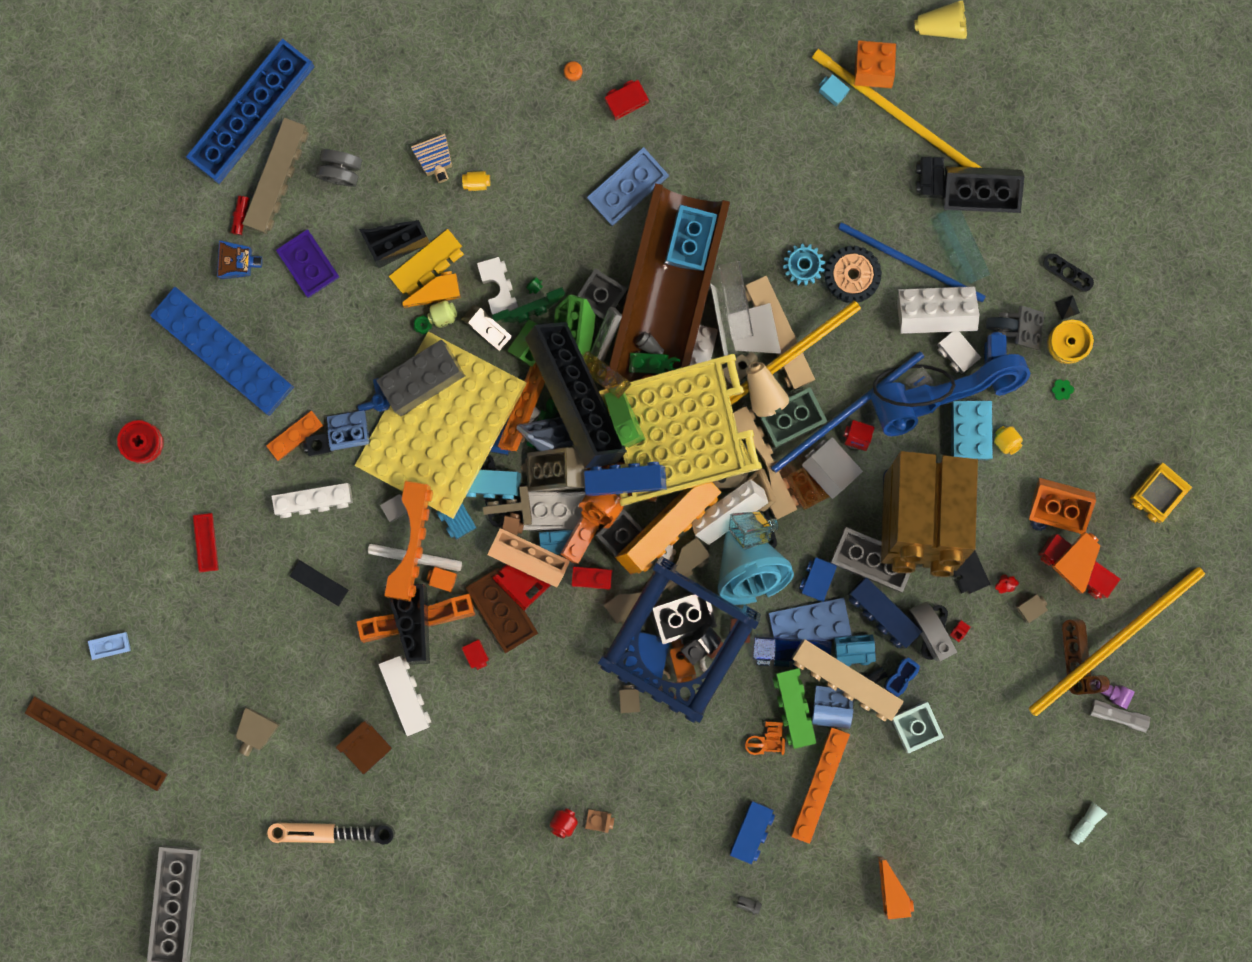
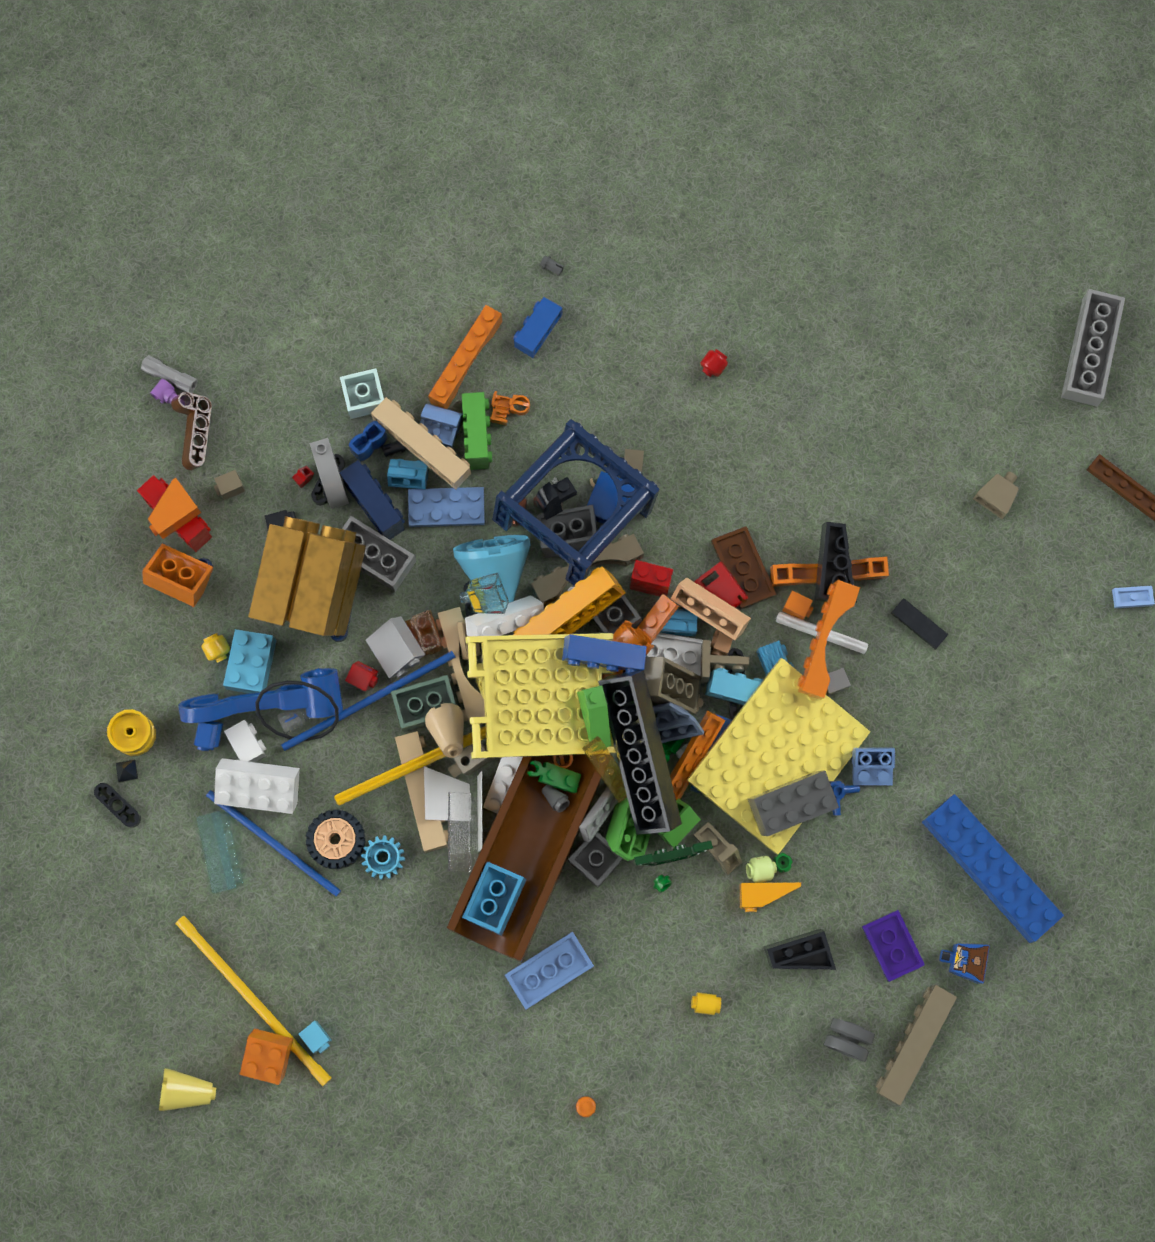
camera: 170 degrees left, 10 degrees down
(129, 439) = (1085, 789): red wheel -> none
(205, 542) = (1028, 680): red plate -> none
(239, 215) = (958, 1009): red pin -> none
(250, 111) = (934, 1119): blue brick -> none
(294, 435) = (926, 772): orange plate -> none
(308, 445) = (913, 754): black brick -> none
(312, 499) = (917, 704): white brick -> none
(328, 833) = (938, 390): piece -> none
(364, 747) = (894, 463): reddish brown bracket -> none
(404, 695) = (849, 502): white brick -> none
(430, 258) = (773, 926): yellow windscreen -> none
(434, 157) = (746, 1036): torso -> none
(476, 654) = (775, 529): red brick -> none
(493, 271) = (701, 904): white arch -> none
(599, 821) = (679, 361): medium nougat bracket -> none
(626, 99) = (535, 1064): red brick -> none
(683, 668) = (578, 480): orange torso -> none
(781, 650) = (476, 484): clear blue windscreen -> none
(818, 579) = (430, 545): blue brick -> none
(895, 899) = (415, 243): orange slope -> none
(930, 177) = (234, 926): black brick -> none
(983, 189) = (183, 902): black brick -> none
(1006, 584) = (249, 512): red plant -> none
(1028, 326) = (170, 753): dark grey plate -> none
(1068, 389) = (145, 689): green plant -> none
(1087, 823) = (222, 285): light aqua piece -> none
(1116, 641) = (154, 438): yellow axle -> none
(1160, 493) = (79, 572): window -> none

